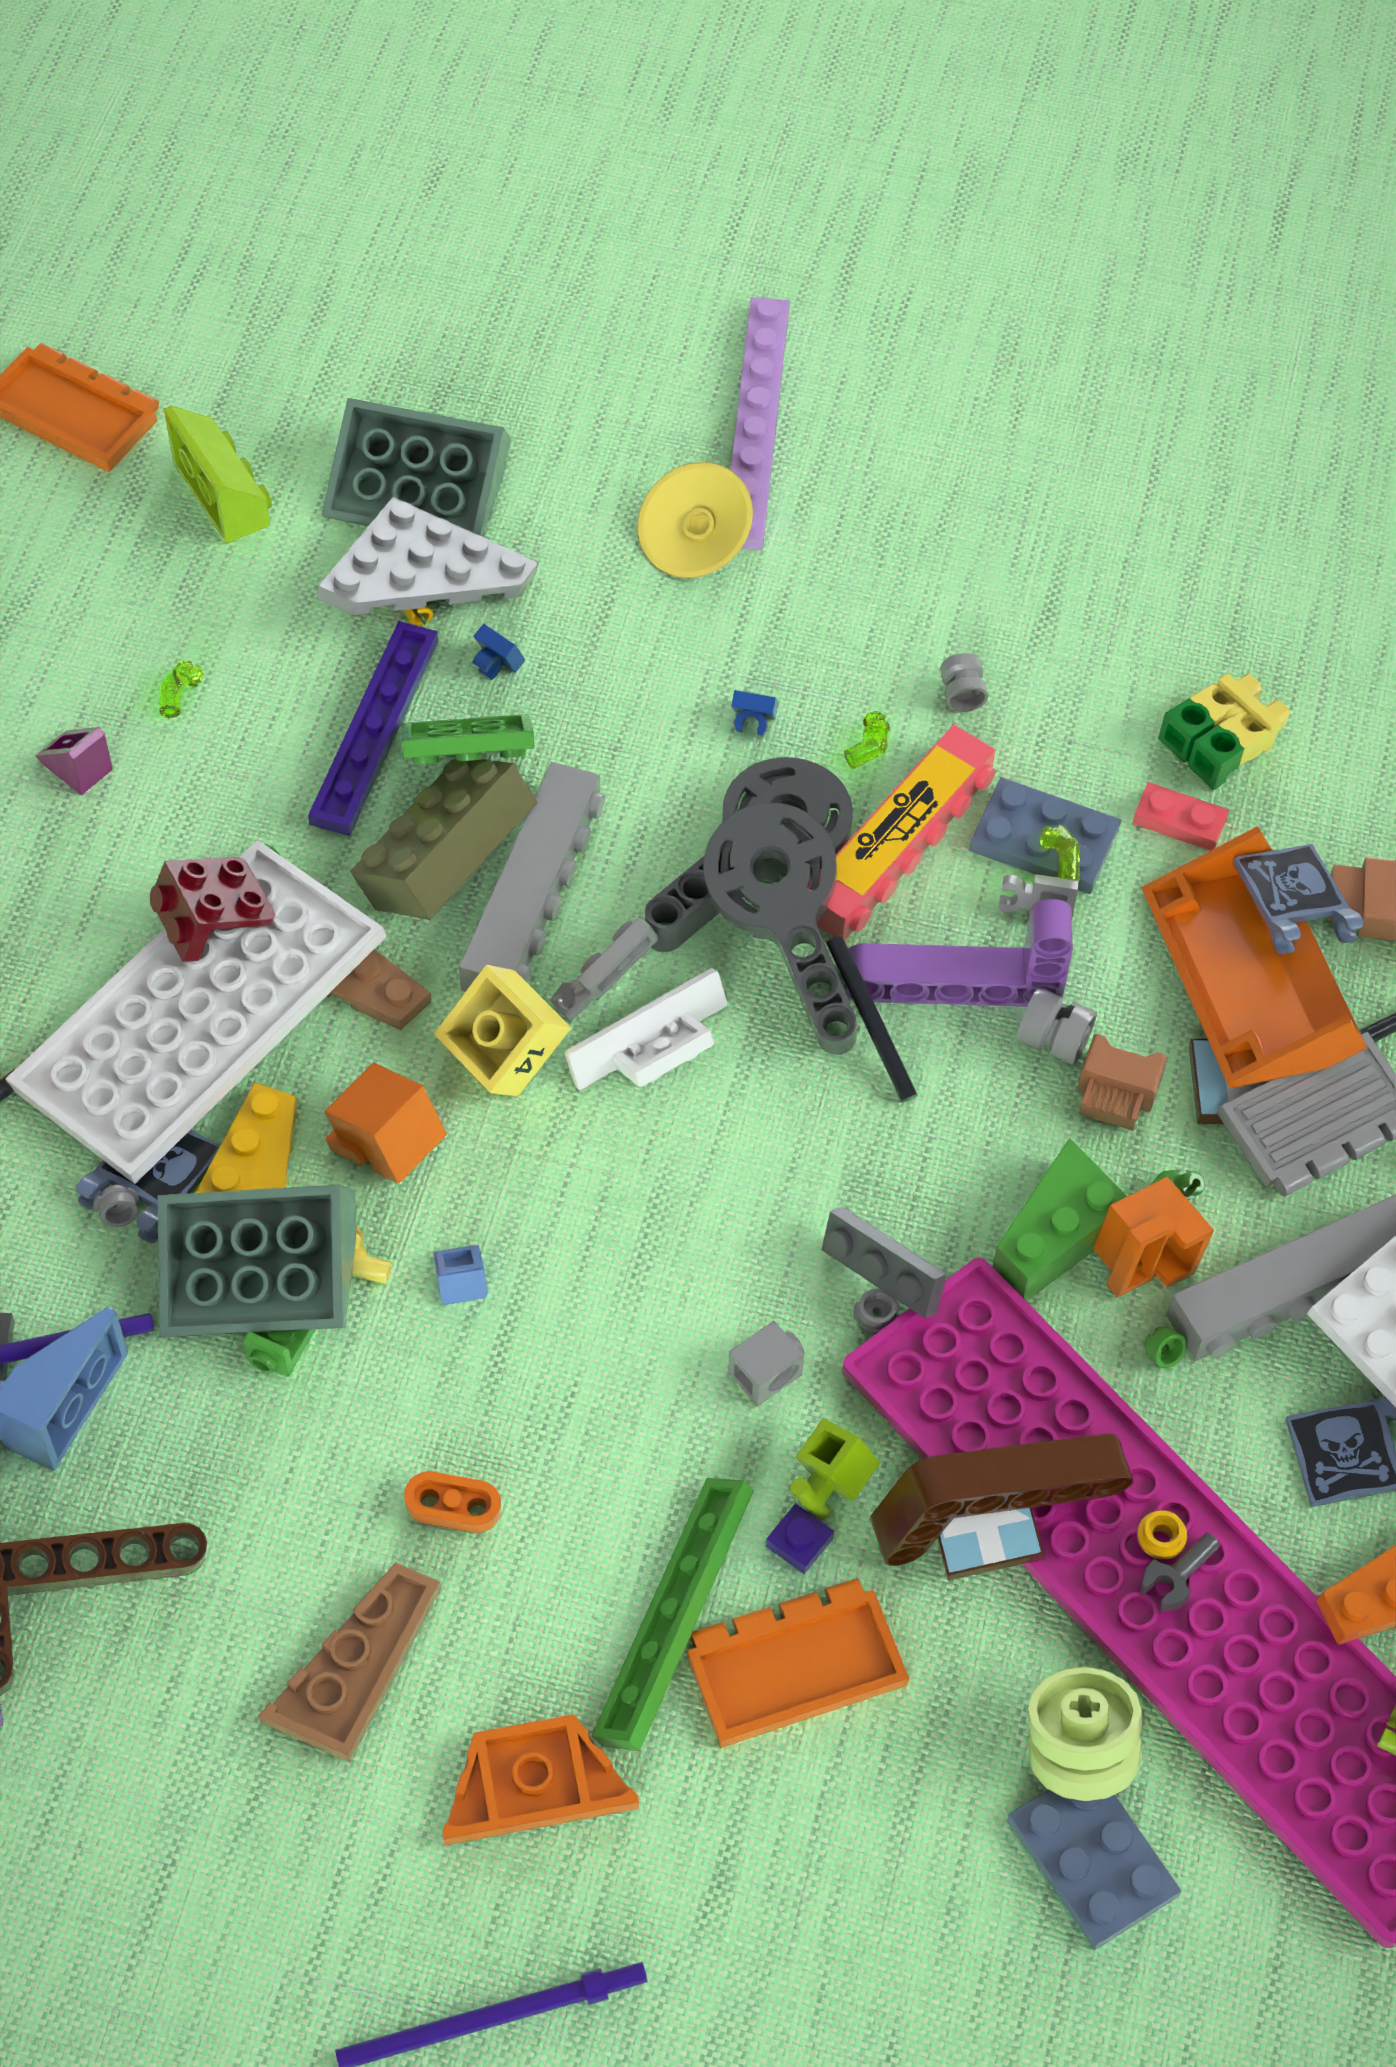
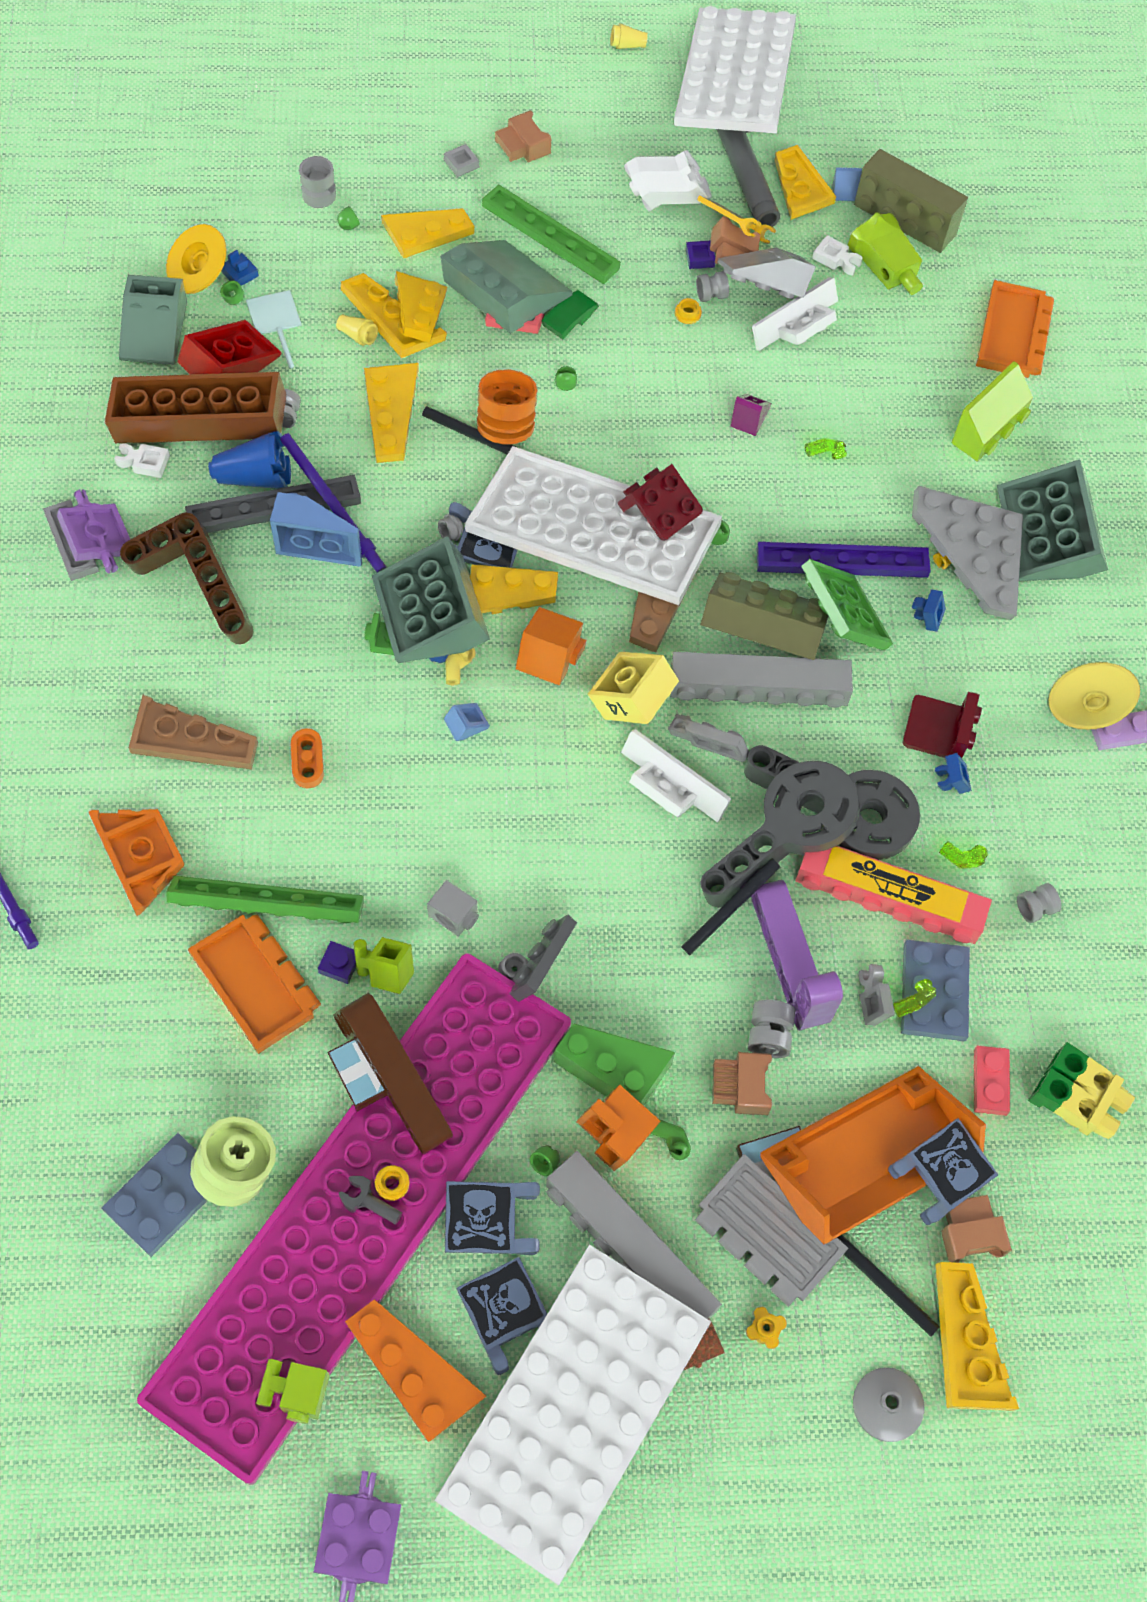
camera: 70 degrees right, 5 degrees up
(679, 695) = (942, 726): none -> dark red bracket
(1231, 1439) = (483, 1217): none -> flag

